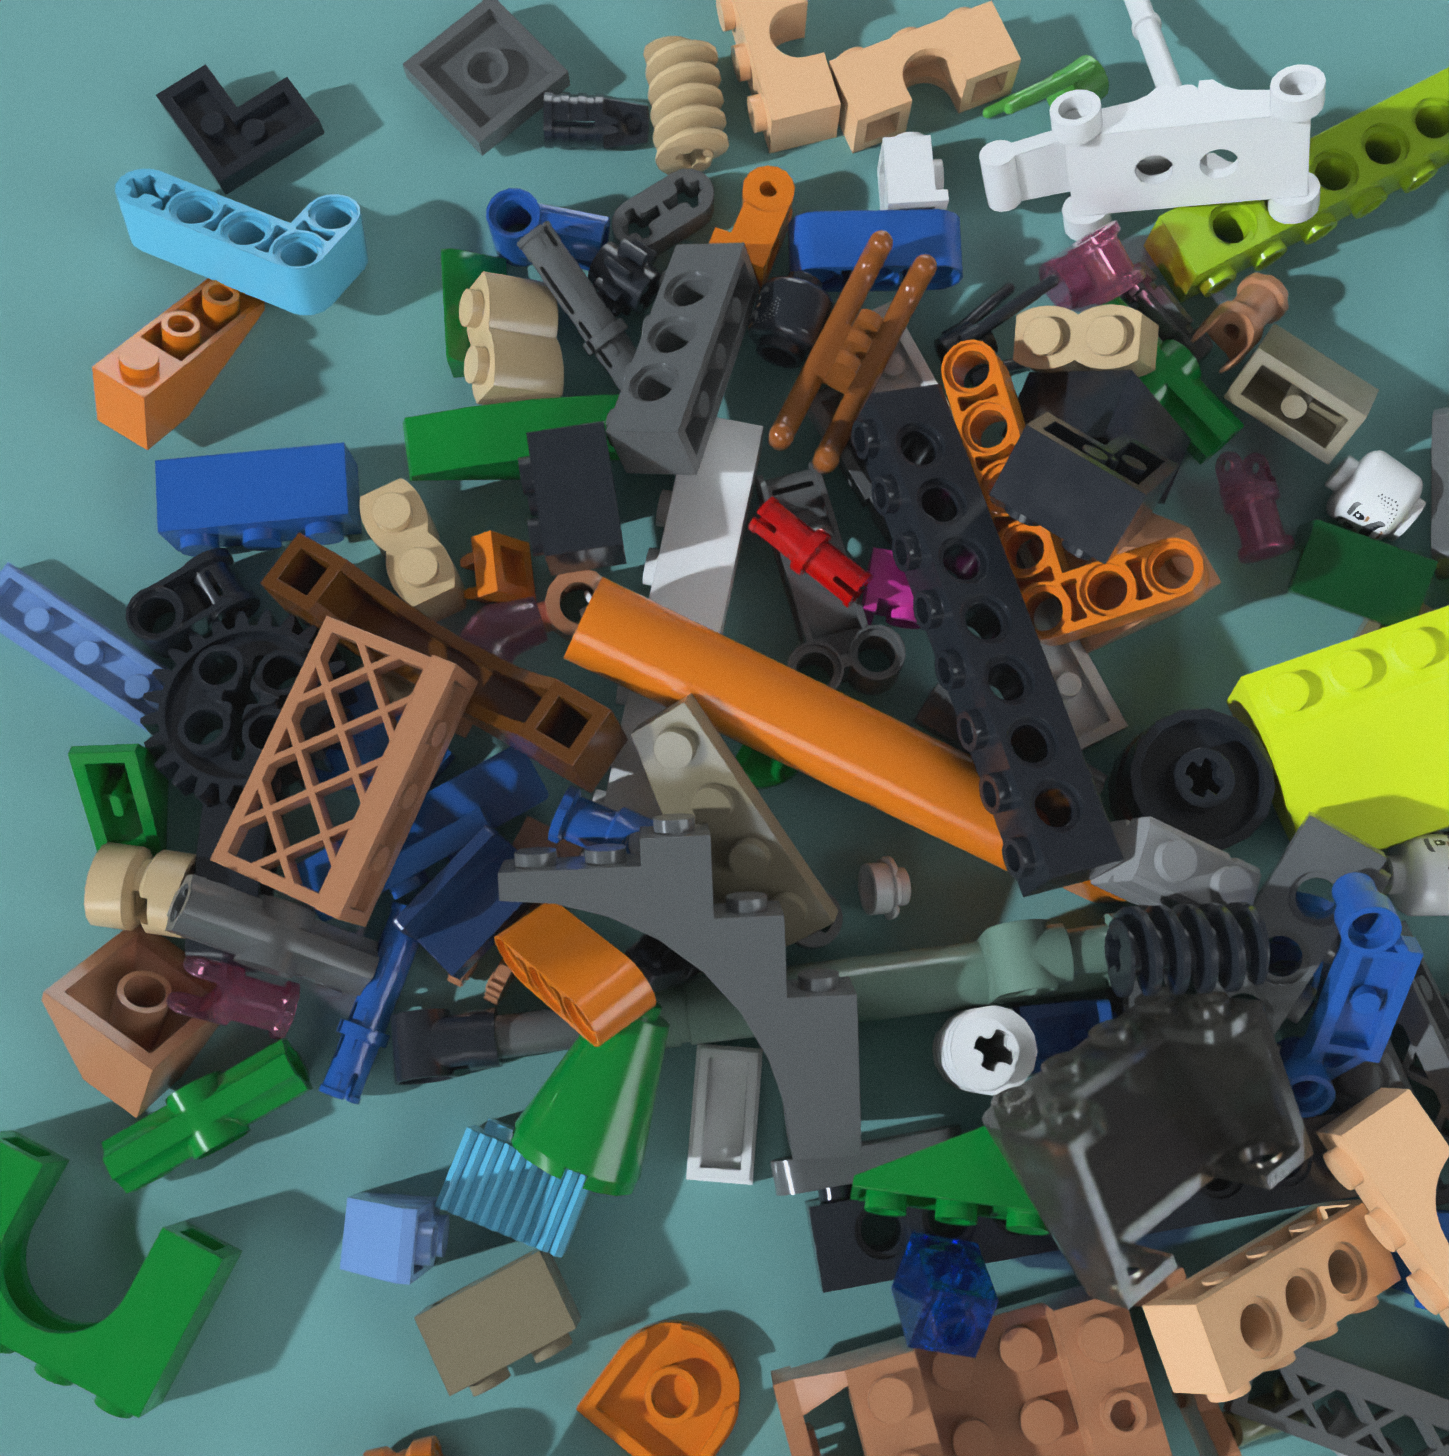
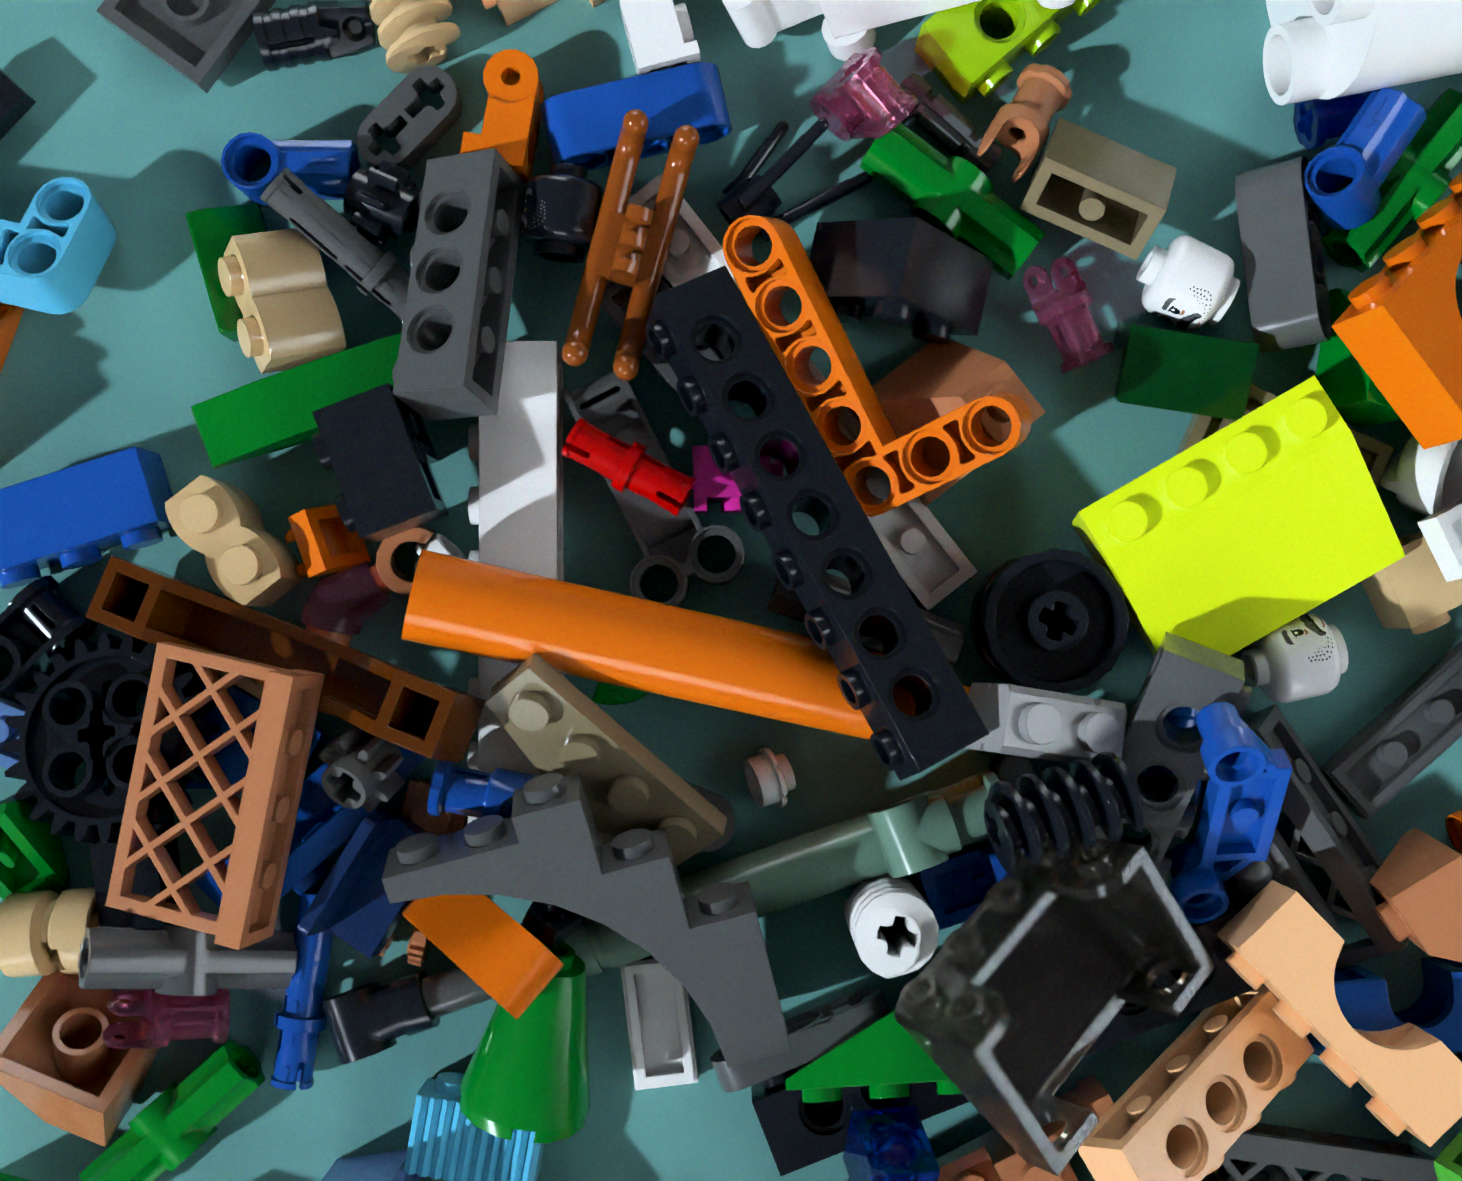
camera: 10 degrees left, 10 degrees up
(491, 781) = (361, 769): none -> dark grey gear
(1081, 488) = (886, 363): black brick -> none
(1096, 339) = (869, 184): tan brick -> none

